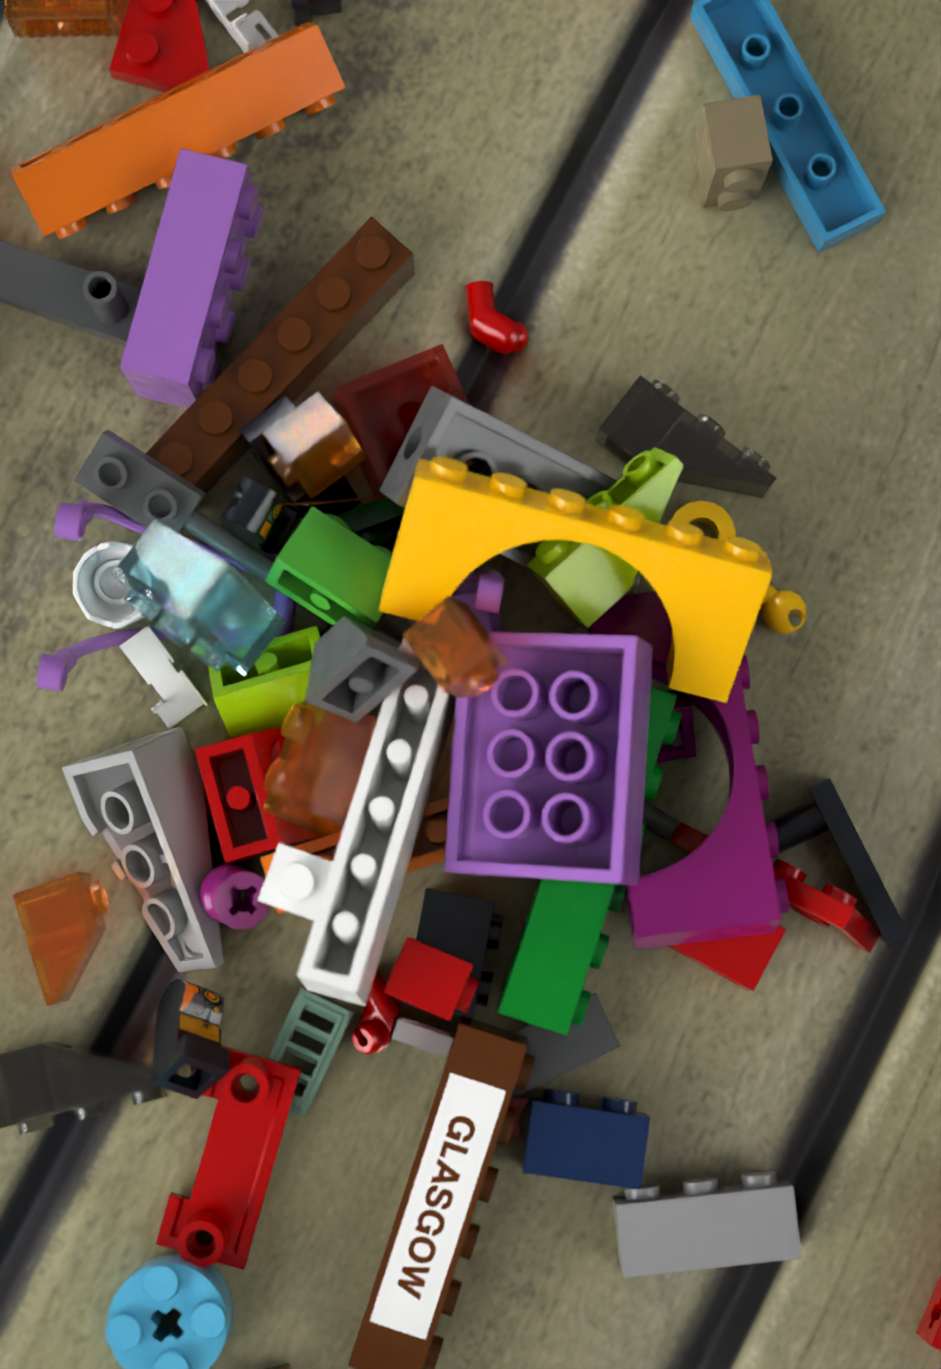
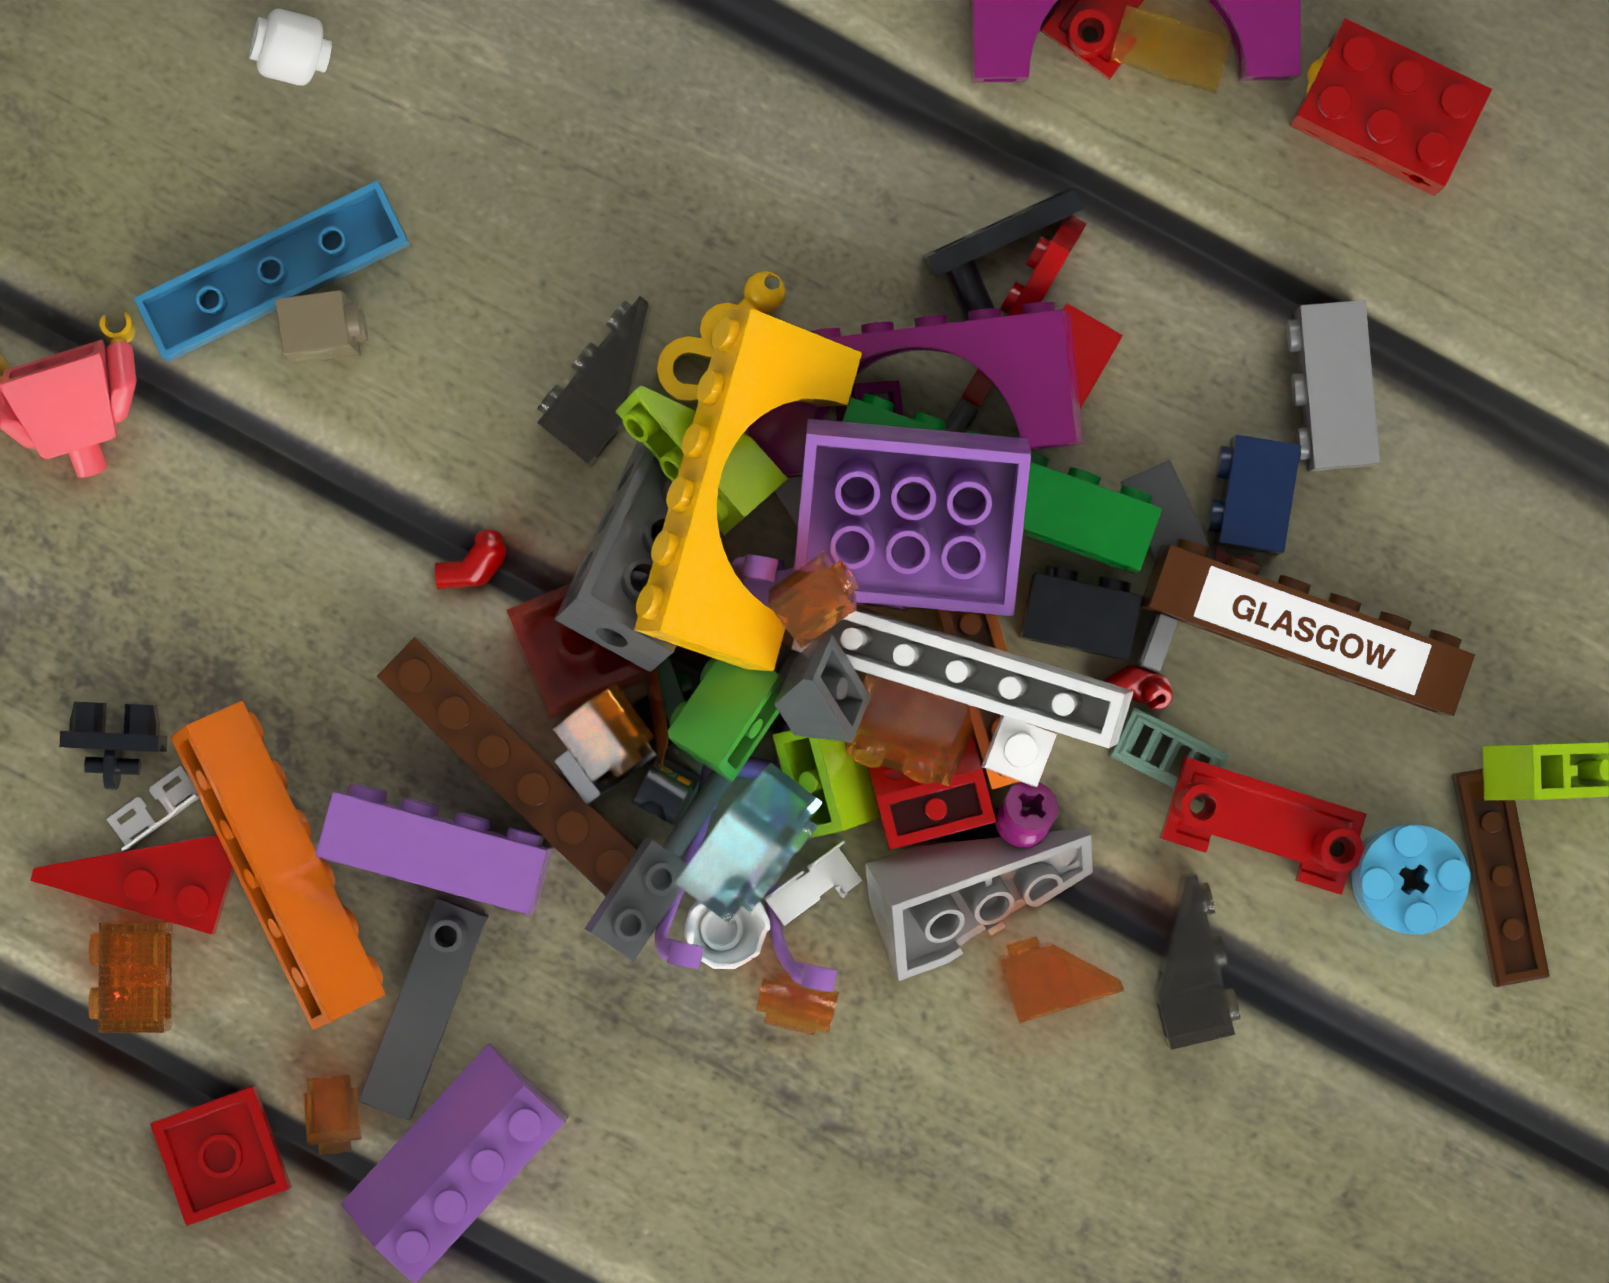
camera: 90 degrees left, 5 degrees up
(24, 658) = (796, 1007): none -> clear orange brick
(189, 1035) = (1155, 859): black leg -> none
(431, 979) = (1108, 631): red brick -> none

